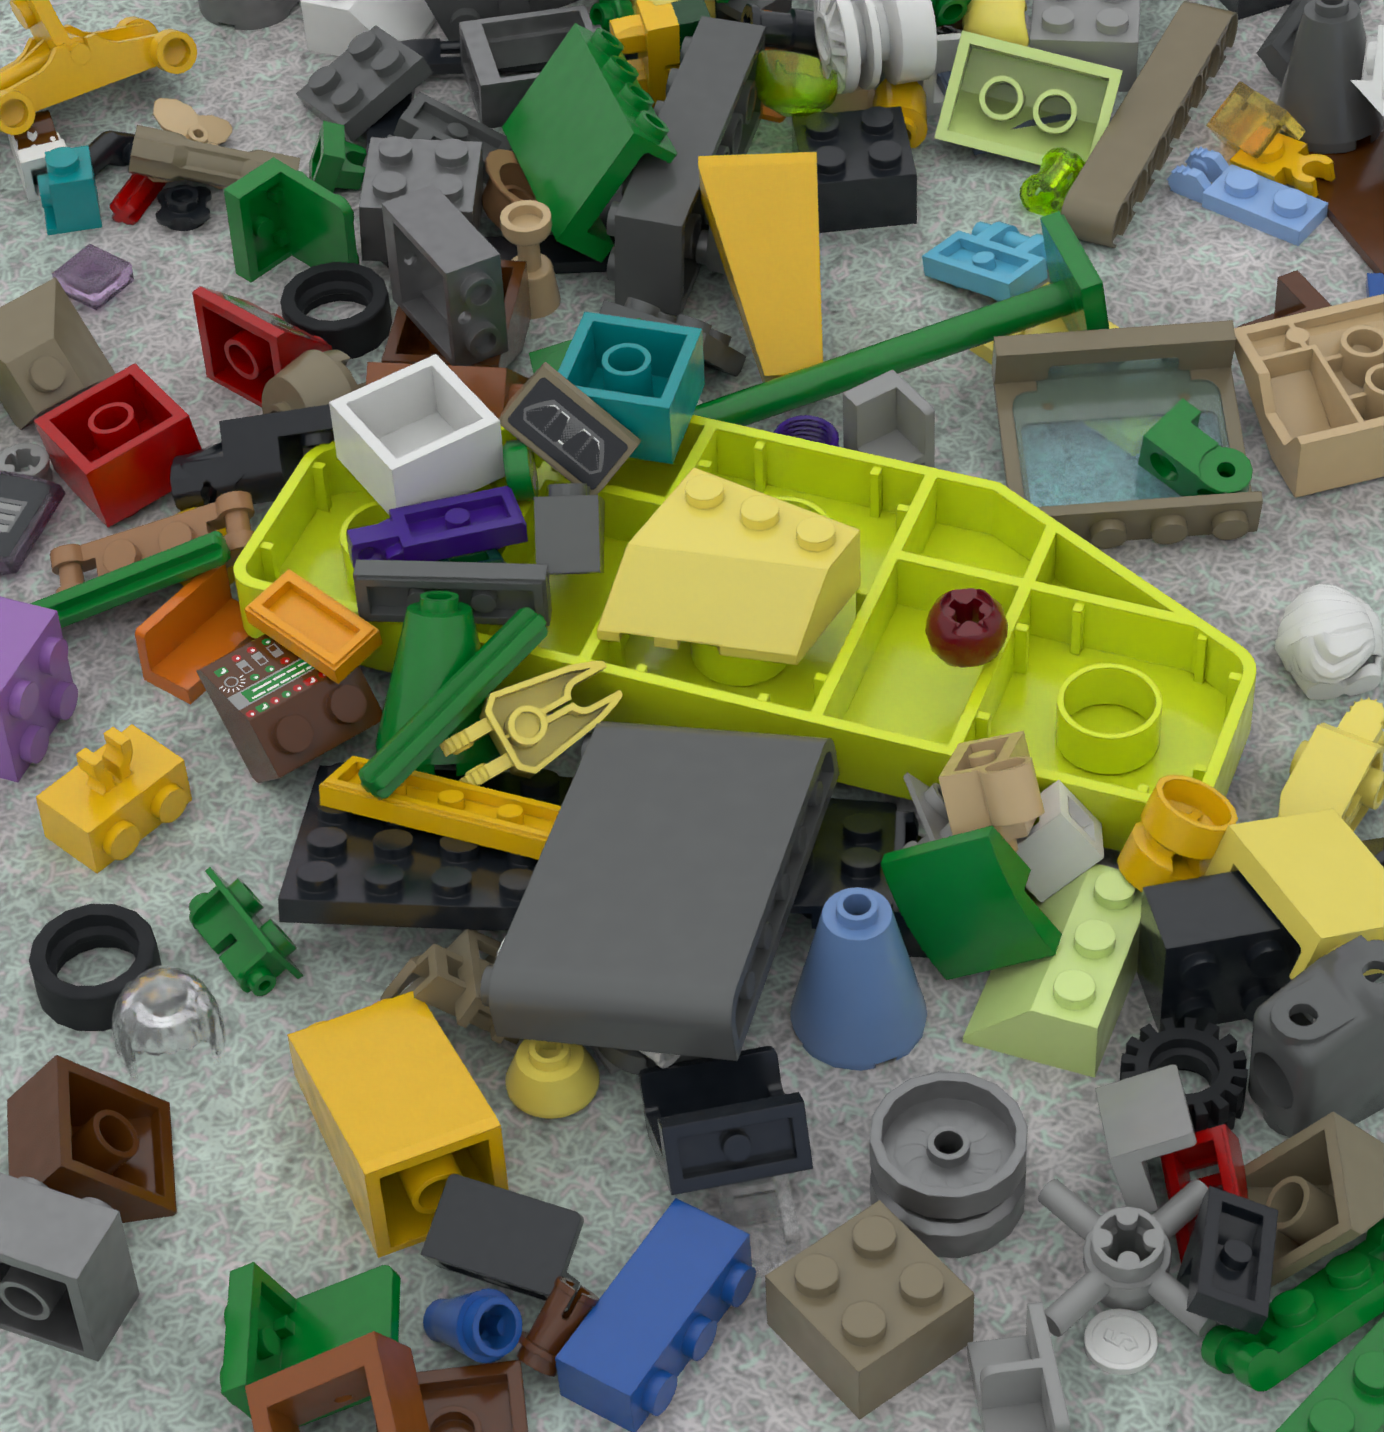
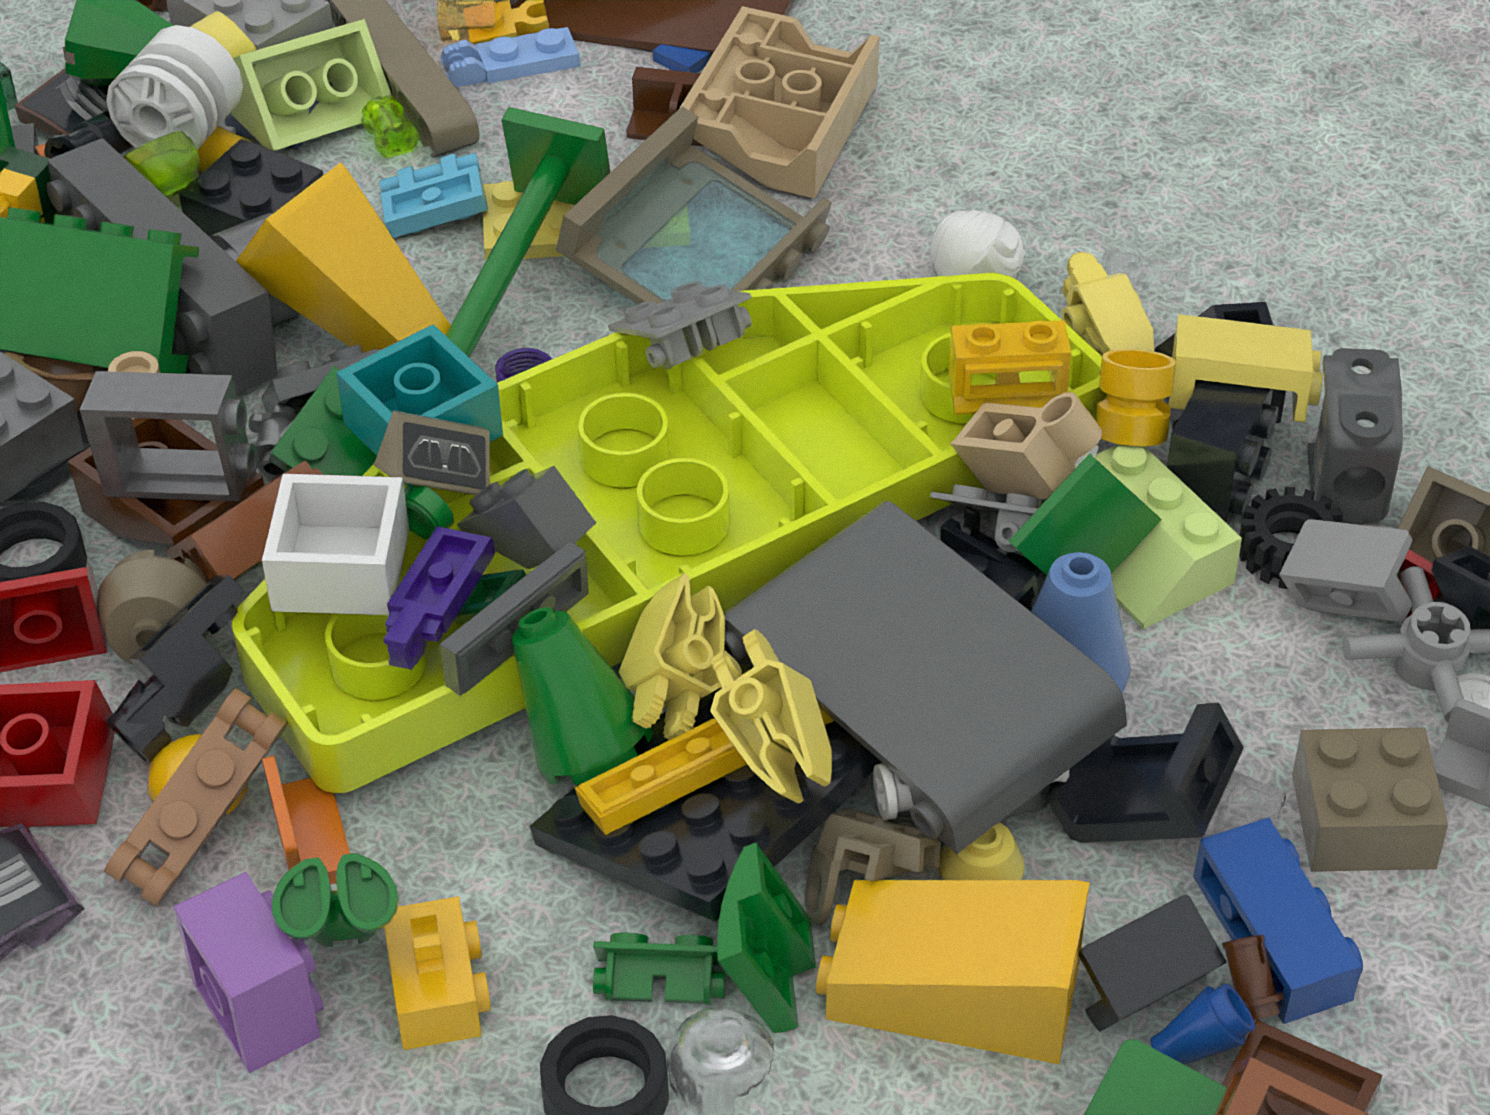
camera: 55 degrees left, 0 degrees up
(79, 680) = (358, 908): none -> green piece
(138, 579) = (210, 839): green axle -> none
(284, 708) = (466, 795): reddish brown slope -> none
(298, 965) = (764, 938): none -> green slope
(313, 626) = (439, 724): light orange tile -> none
(453, 703) = (627, 684): green axle -> none
(476, 808) = (772, 718): none -> light yellow hinge
(733, 573) = (669, 458): light yellow wedge -> none
(889, 420) = (571, 313): light grey panel -> none
(914, 468) = (687, 322): none -> light grey hinge
(950, 1161) = (1279, 677): flat silver wheel -> none
(966, 627) = (851, 377): dark red piece -> none
(1106, 717) = (1007, 351): none -> yellow window
(1191, 459) = (755, 211): green leg -> none

